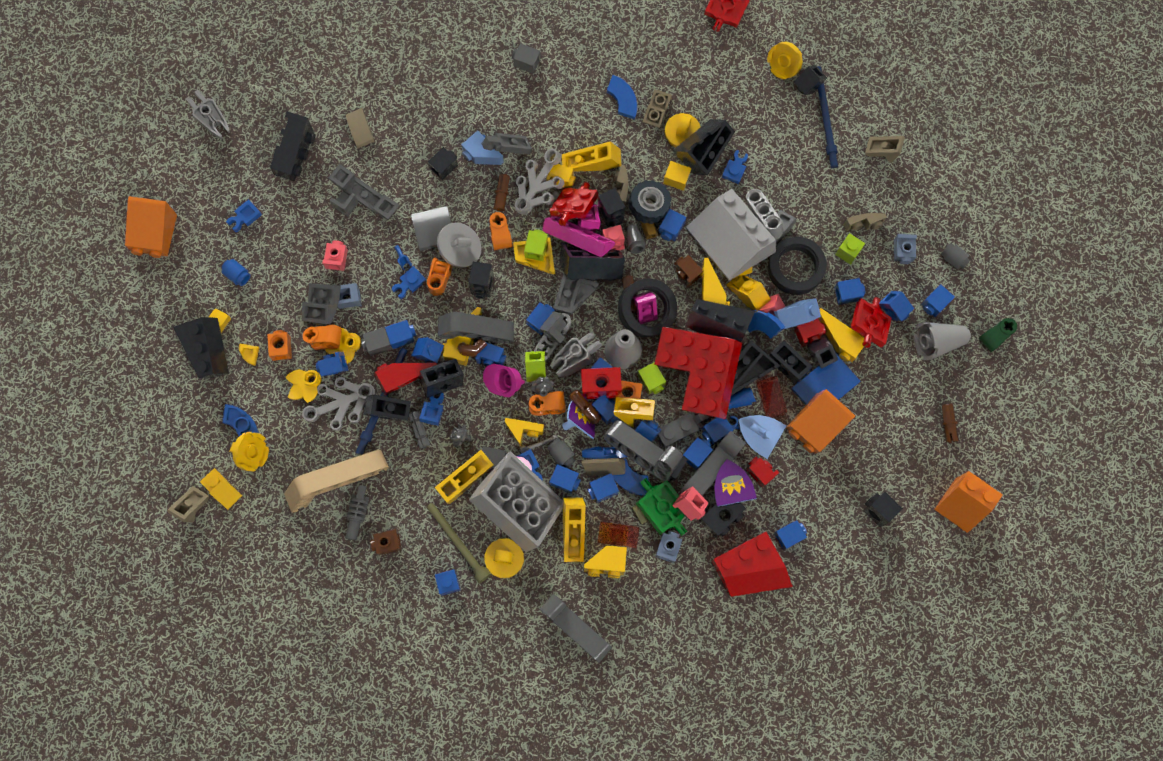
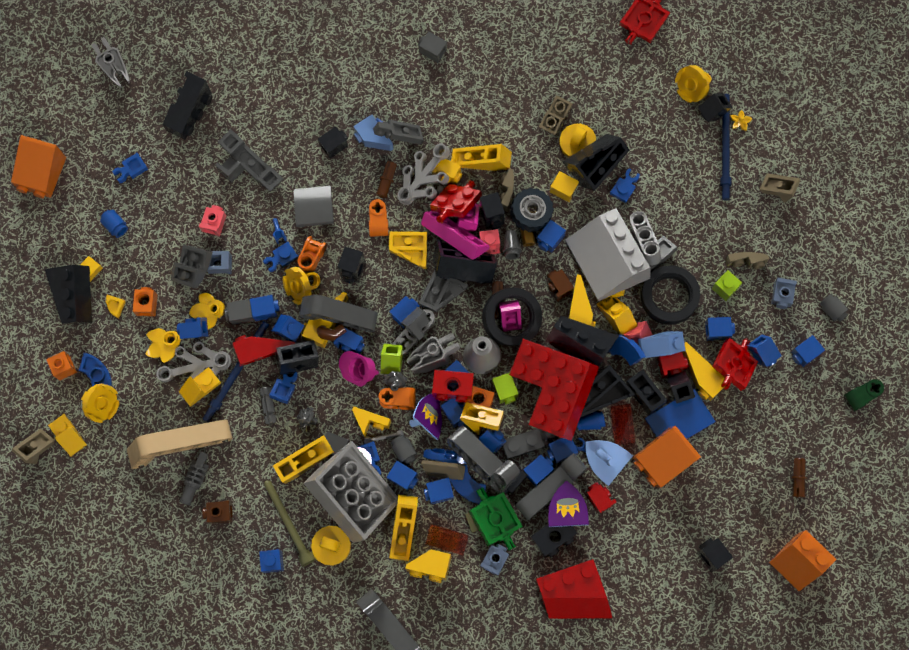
camera: 15 degrees right, 0 degrees up
(204, 420) = (61, 365): none -> orange brick
(323, 337) = (188, 300): orange piece -> none
(347, 421) = (200, 386): none -> yellow slope
(359, 128) = (256, 95): dark tan slope -> none
(387, 408) = (239, 379): black brick -> none
(430, 305) = (298, 285): none -> yellow tile
(459, 245) = (335, 226): light grey shield -> none
(536, 245) = (411, 238): lime brick -> none
(585, 407) = (434, 407): reddish brown axle -> none
(624, 96) = (525, 99): blue tile -> none
(691, 504) = (523, 520): coral brick -> none
(791, 534) = (619, 566): blue brick -> none
(836, 90) = (740, 120): none -> yellow plant
(938, 339) = (803, 390): light grey cone -> none

